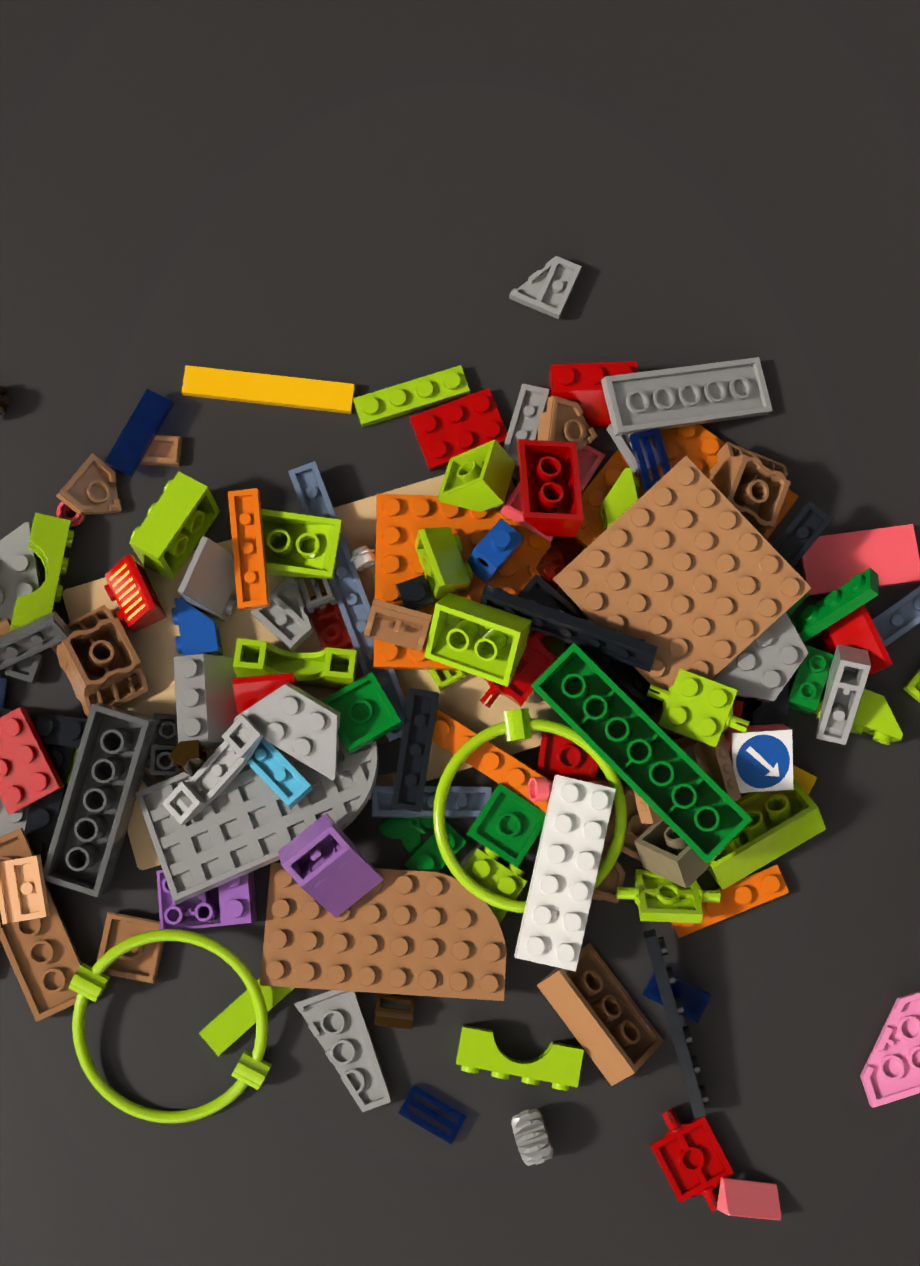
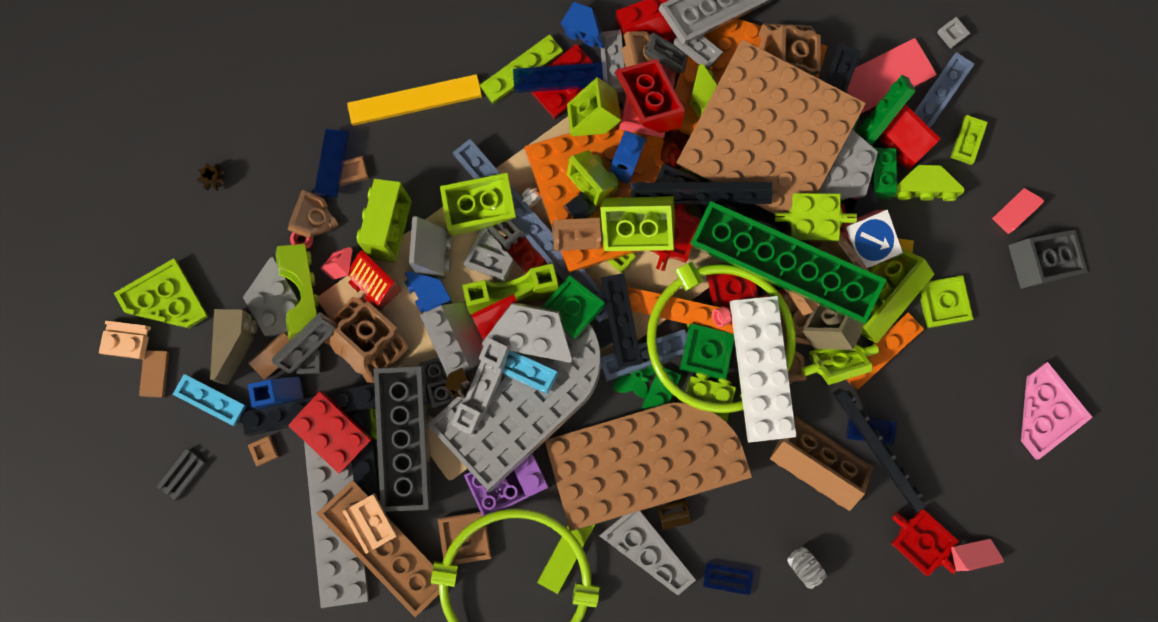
camera: 20 degrees left, 0 degrees up
(101, 558) = (338, 264): none -> coral slope
(248, 549) = (447, 217): orange plate -> none
(329, 866) = (591, 424): medium lavender slope -> none
(447, 421) = (556, 77): none -> clear blue plate
(505, 367) = (583, 24): none -> blue slope
(557, 1064) = (805, 509): lime arch -> none
(591, 442) = (666, 56): none -> dark grey tile
(643, 470) = (707, 56): clear blue tile -> none
(829, 868) = (945, 302): none -> lime tile
(843, 693) = (912, 172): light grey slope -> none

